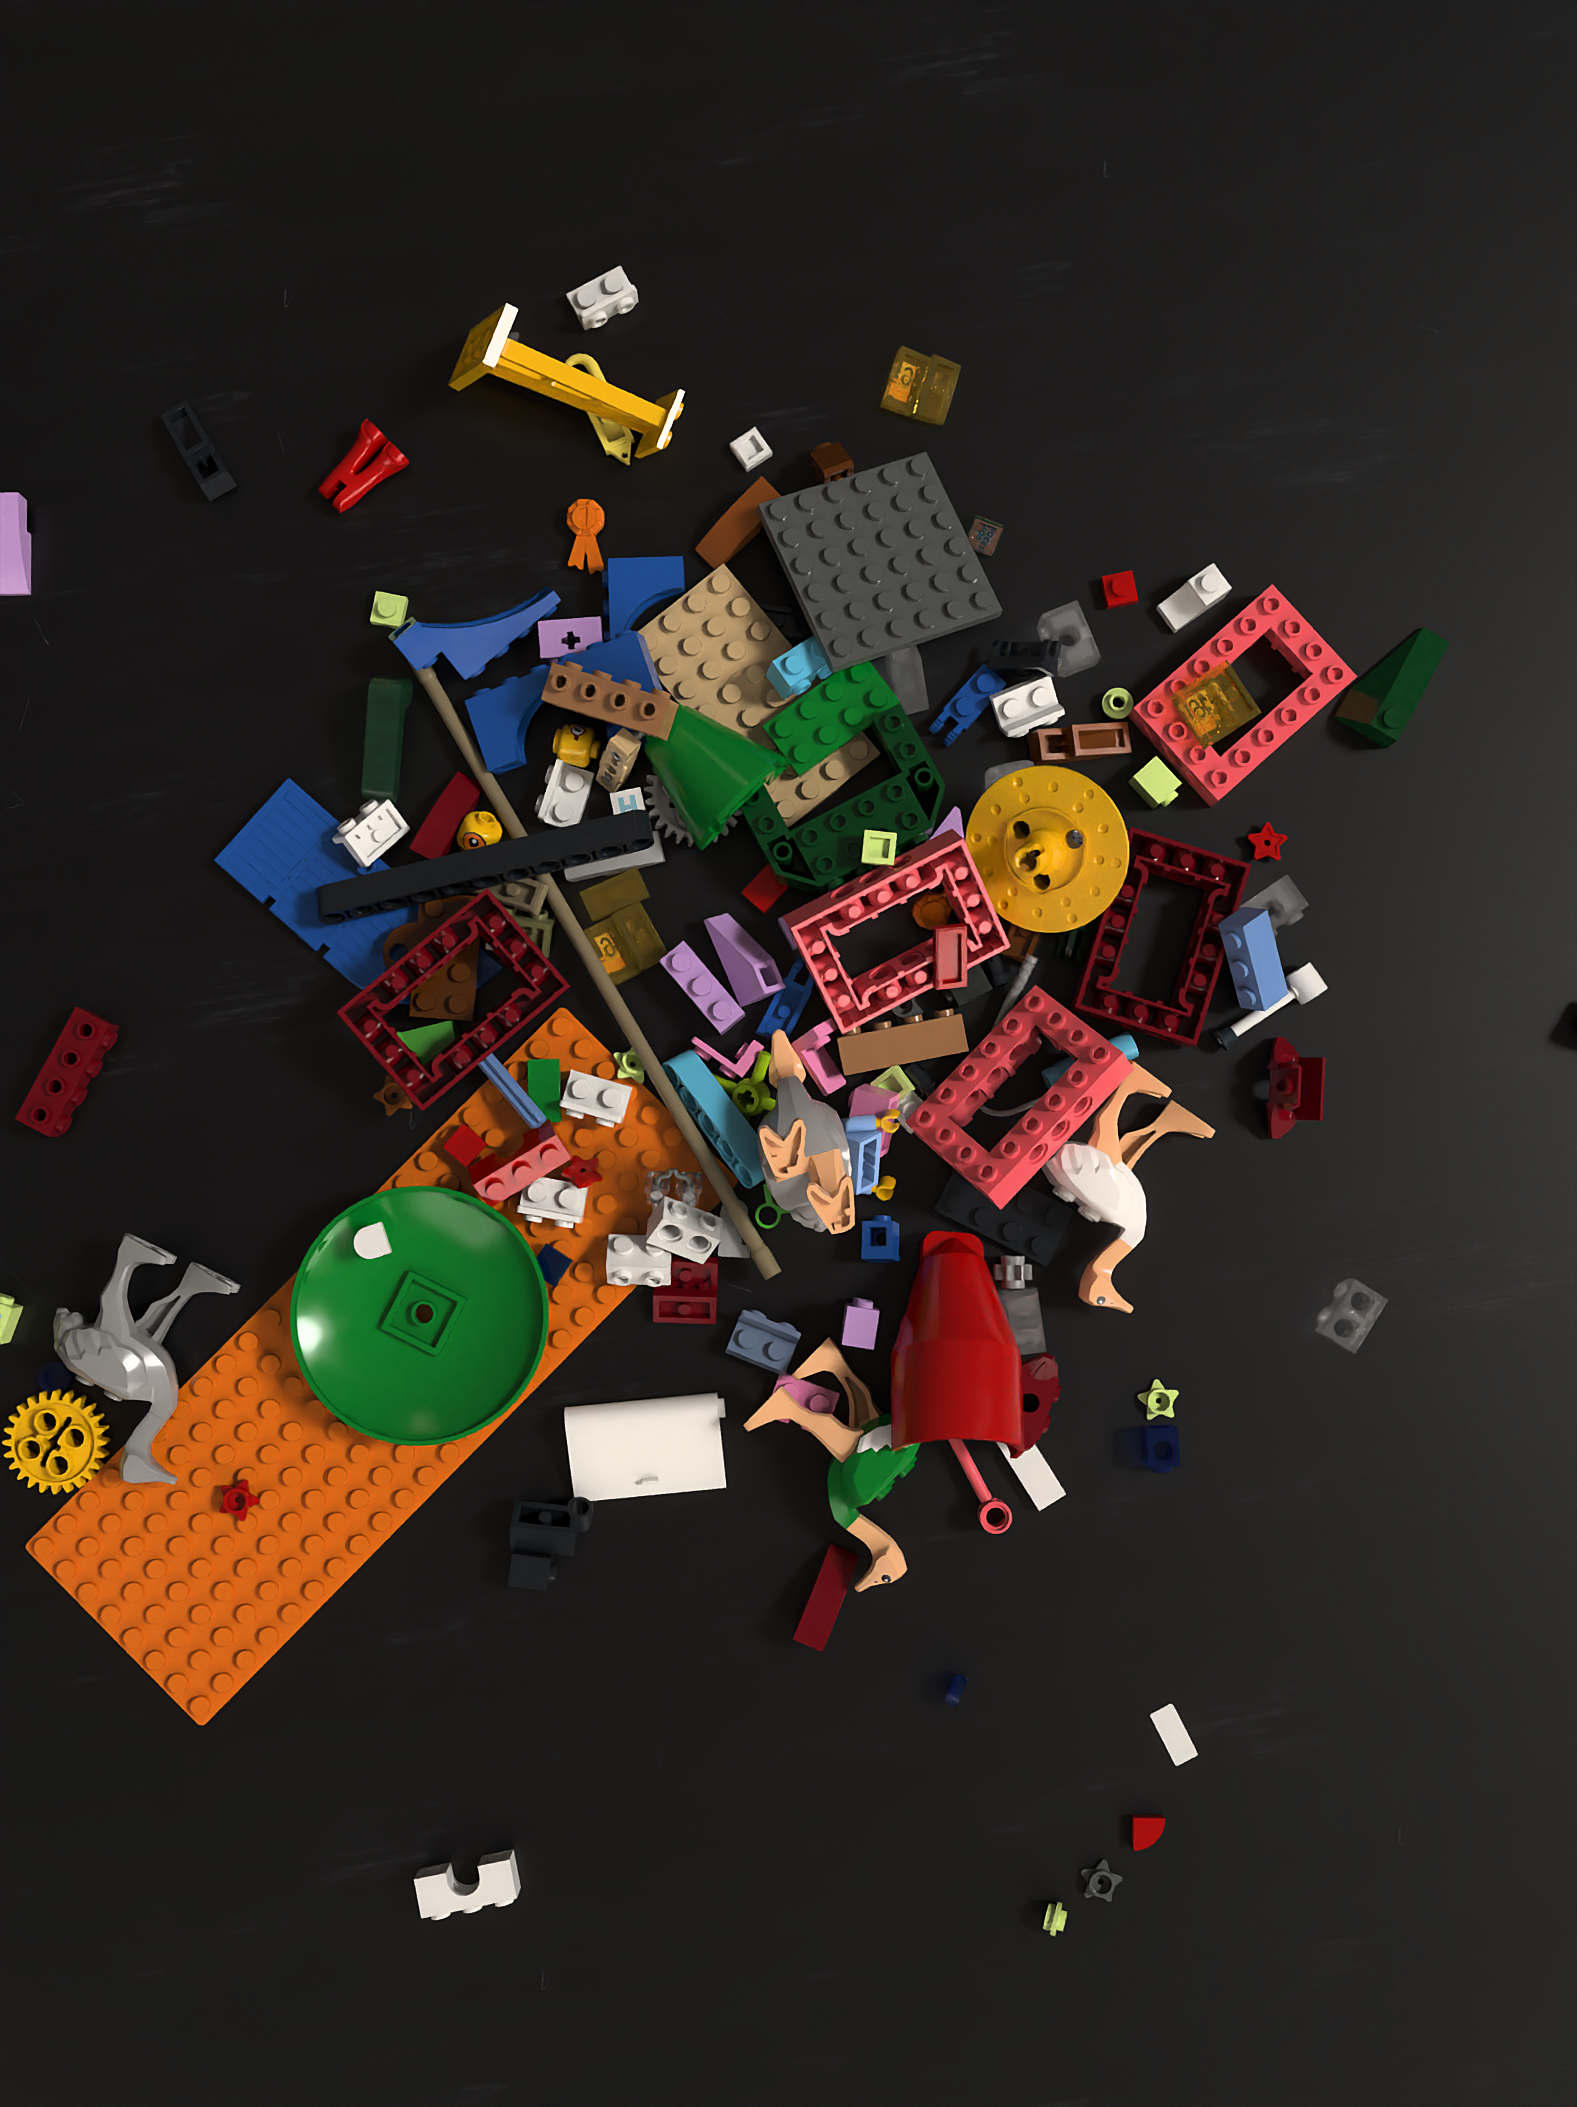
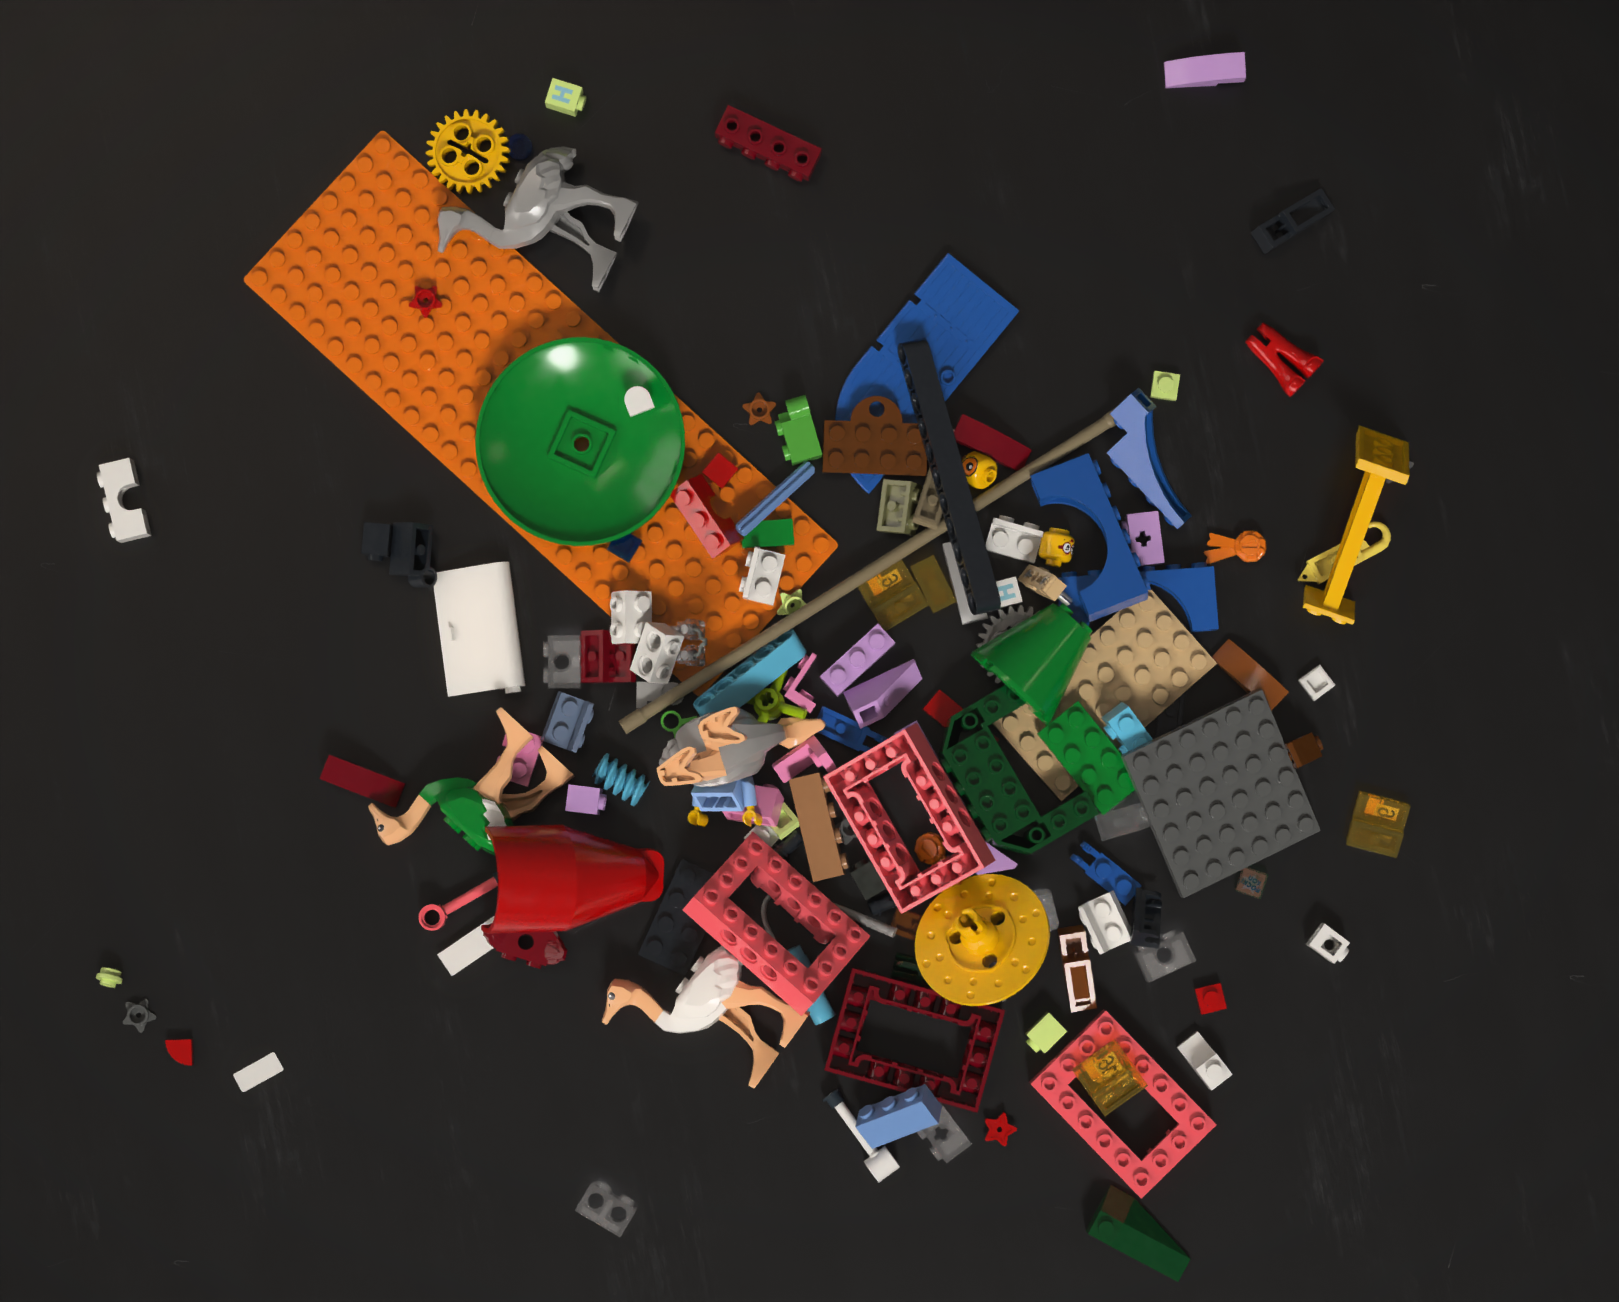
camera: 90 degrees right, 0 degrees up
(371, 831) = (976, 381): white bracket -> none
(384, 736) = (1056, 388): clear green beam -> none
(538, 988) = (849, 524): dark red brick -> none
(553, 1200) = (677, 546): white bracket -> none
(579, 1179) = (695, 568): red plate -> none
(603, 298) = (1440, 552): white bracket -> none
(610, 701) = (1087, 574): medium nougat brick -> none
(670, 1345) = (571, 676): none -> clear brick
(835, 1280) = (620, 779): none -> medium azure piece
(872, 1250) = (652, 807): blue brick -> none
(878, 848) = (974, 799): yellowish green plate -> none
(950, 956) = (889, 862): tile -> none
(955, 1689) = (290, 890): clear blue tile -> none
(1012, 1272) = (632, 925): light grey gear -> none
(1025, 1318) = (593, 936): clear brick -> none
(1051, 457) = (1323, 934): none -> white brick
(1112, 711) = (1104, 999): yellowish green plate -> none
(1150, 1437) = (501, 1045): clear blue brick -> none
(1167, 1398) = (533, 1058): yellowish green plate -> none
(1294, 1088) = (793, 1155): dark red piece -> none

